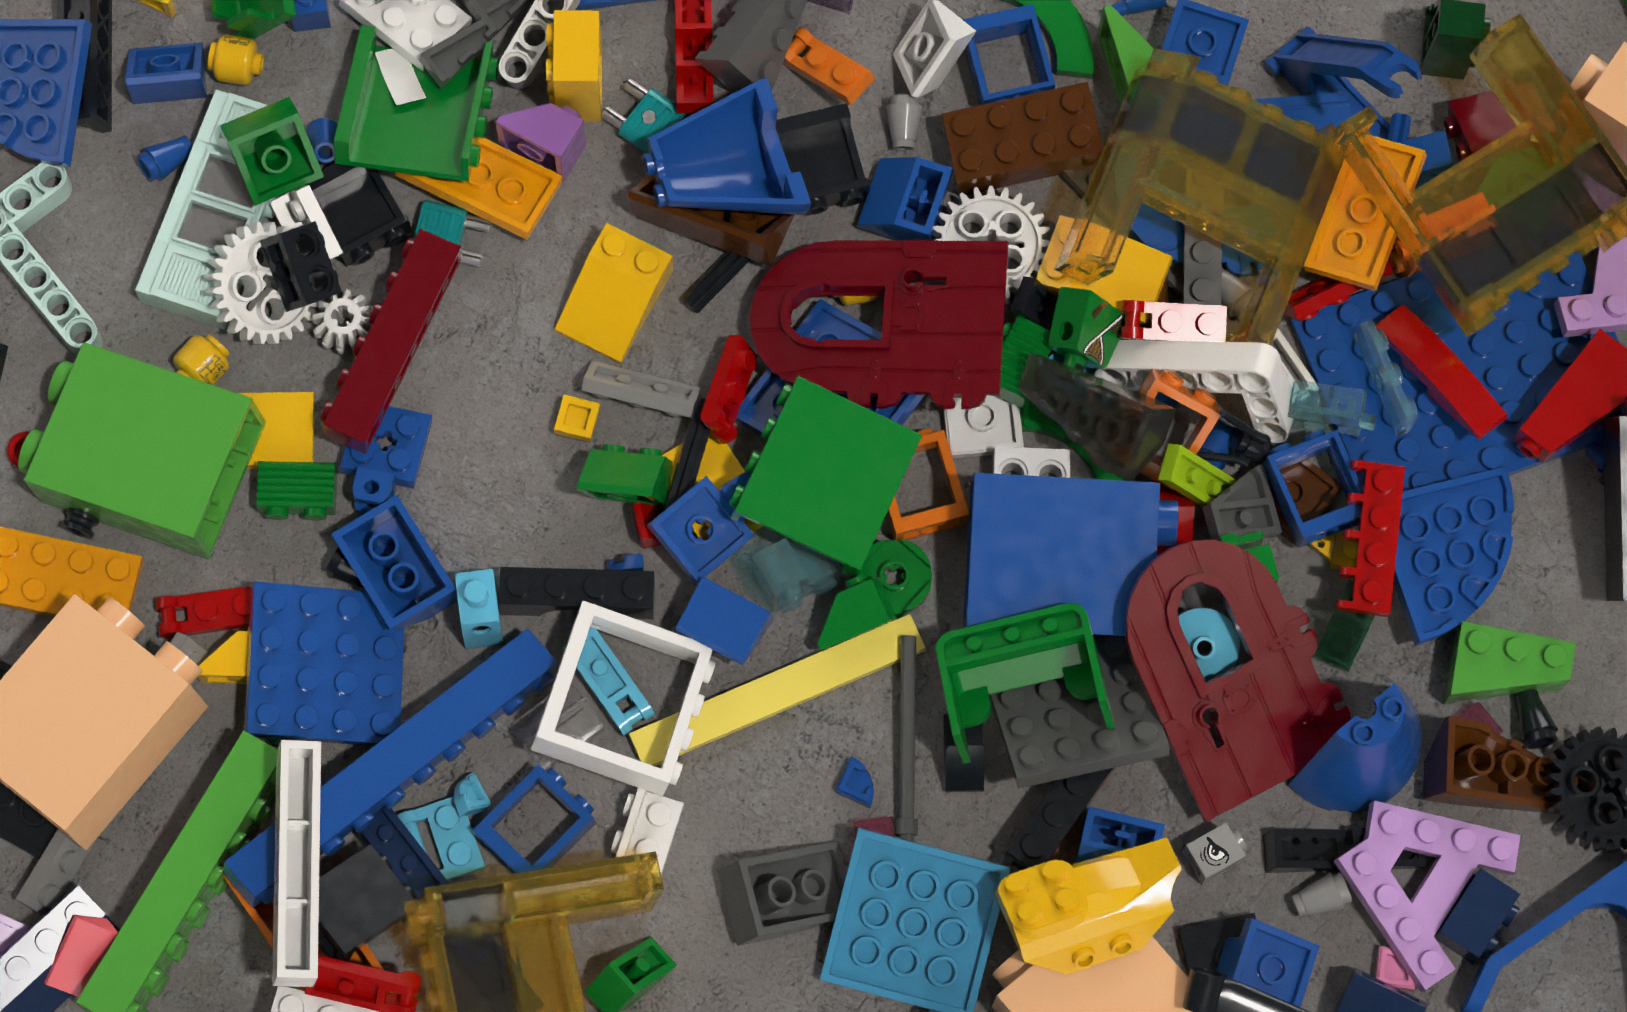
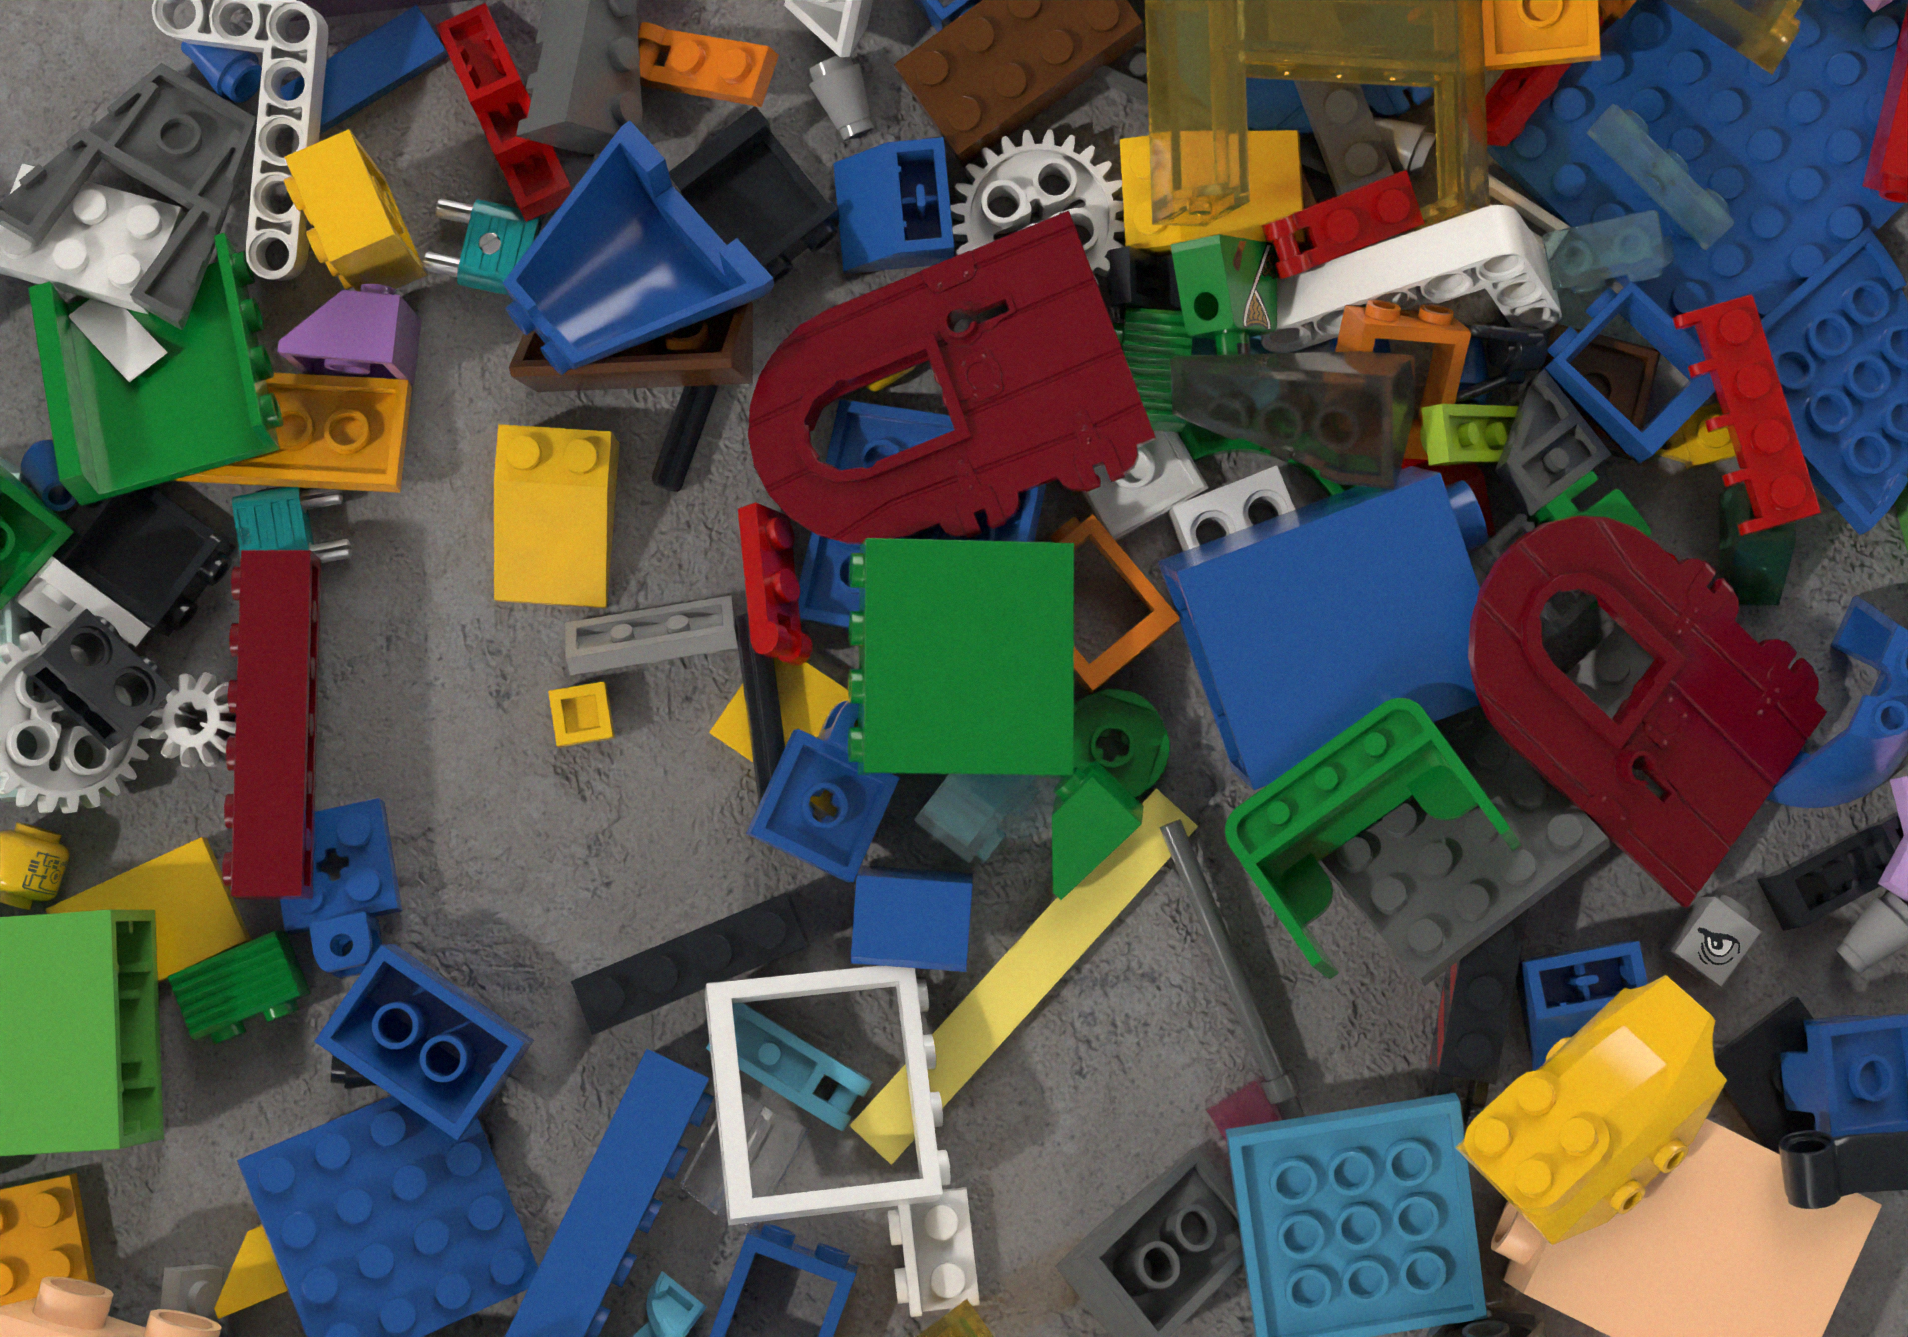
camera: 20 degrees left, 10 degrees up
(206, 612) = (191, 1212): red plate -> none
(479, 607) = (562, 1043): medium azure torso -> none
(625, 476) = (685, 773): green slope -> none
(631, 562) = (740, 894): blue tile -> none
(643, 515) = (737, 815): red slope -> none
(856, 783) = (1186, 1054): blue tile -> none
(961, 776) = (1313, 985): black slope -> none
(1219, 631) = (1591, 636): medium azure dish -> none
(1442, 372) = (1737, 135): red slope -> none

